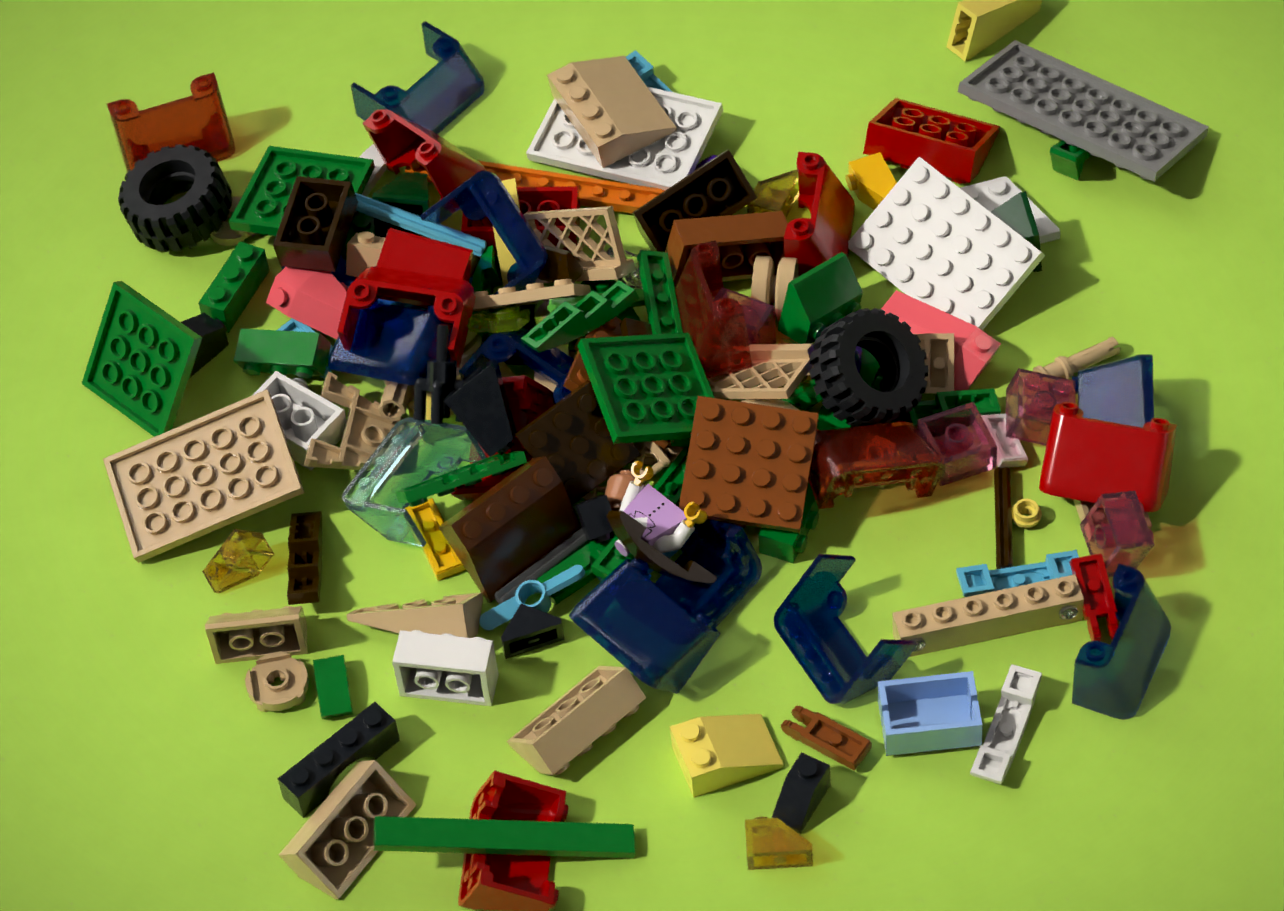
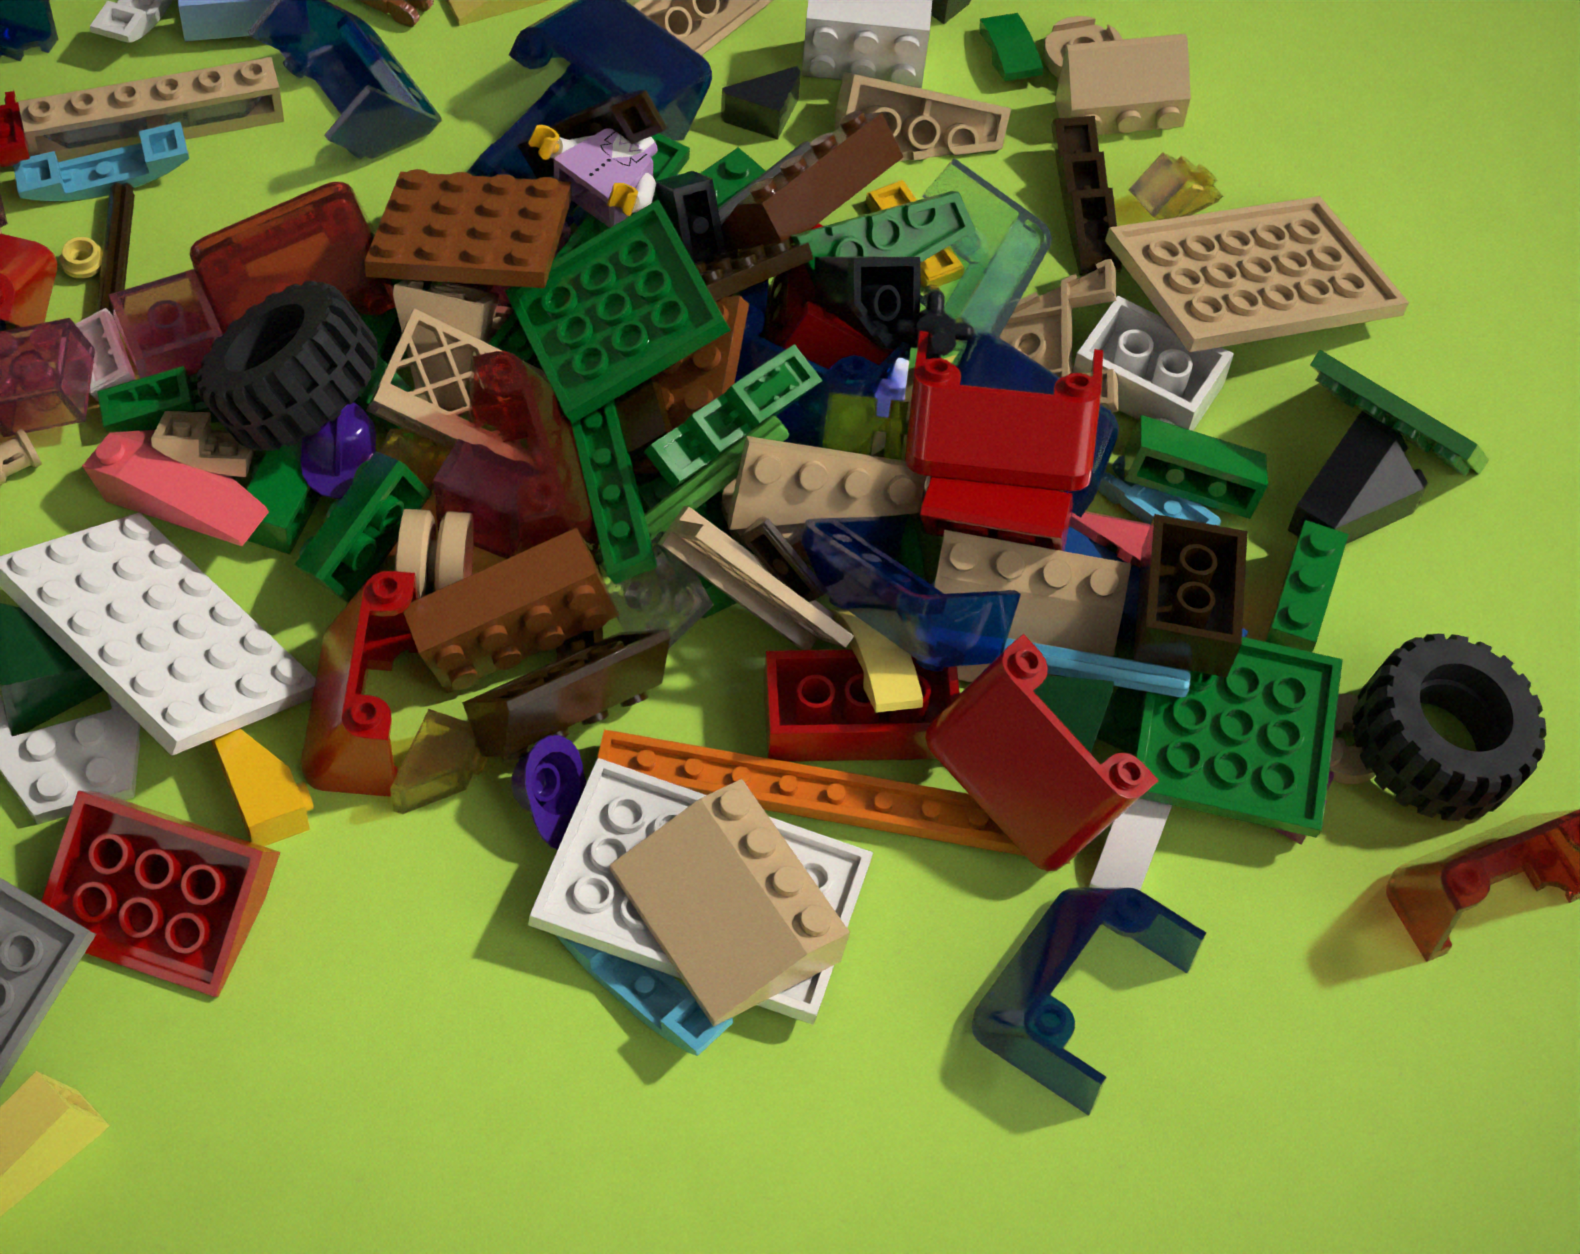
camera: 165 degrees right, 5 degrees up
(507, 609) = (763, 140): medium azure piece -> none

